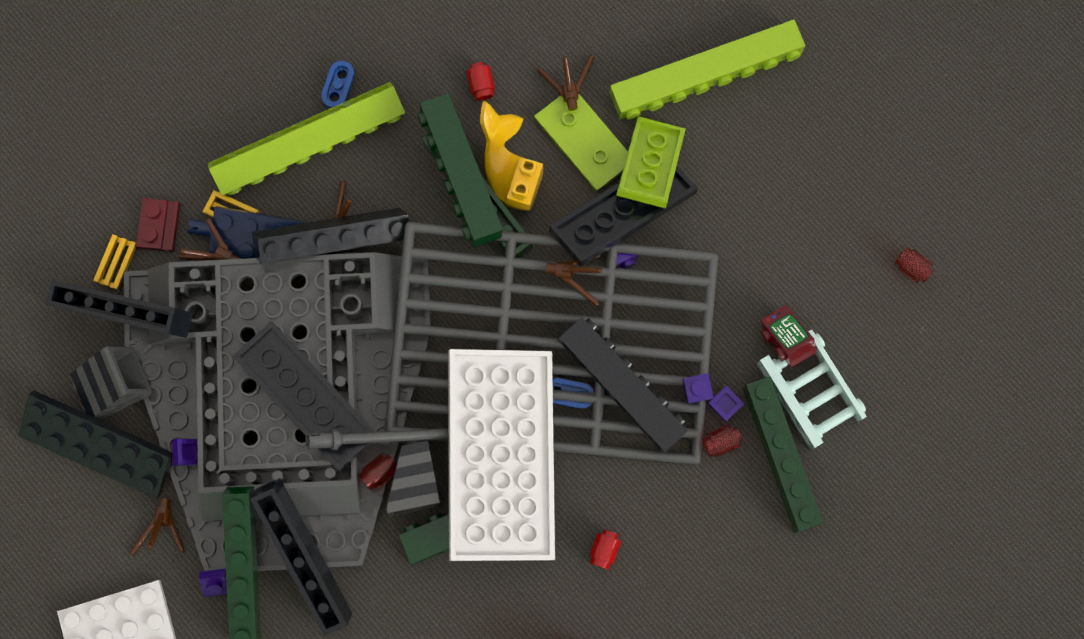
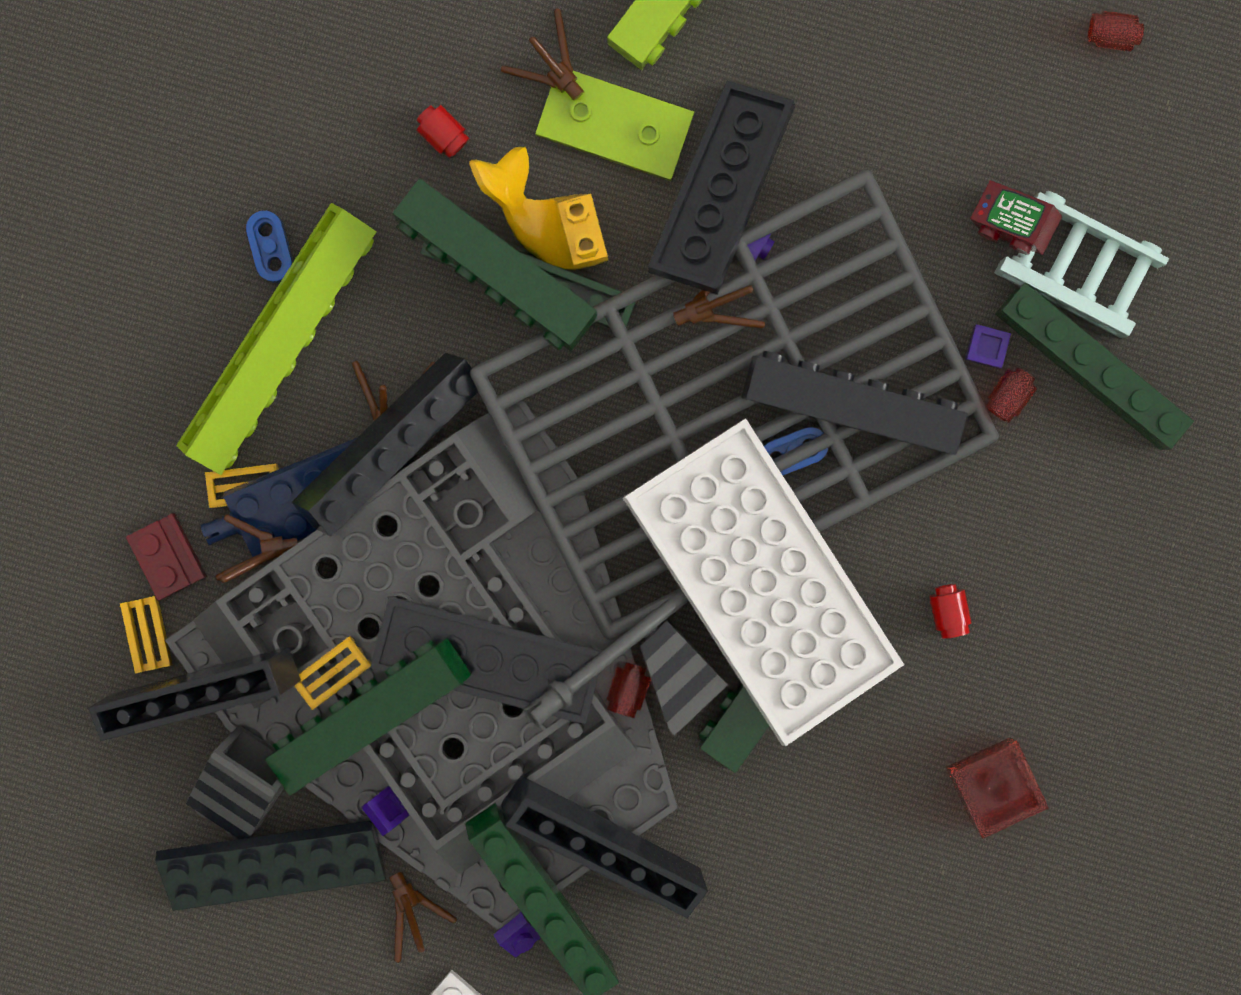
camera: 20 degrees left, 10 degrees up
(208, 356) = (356, 653): none -> yellow tile
(212, 383) = (368, 716): none -> dark green brick
(651, 162) = (718, 104): lime plate -> none
(697, 388) = (945, 350): dark purple plate -> none

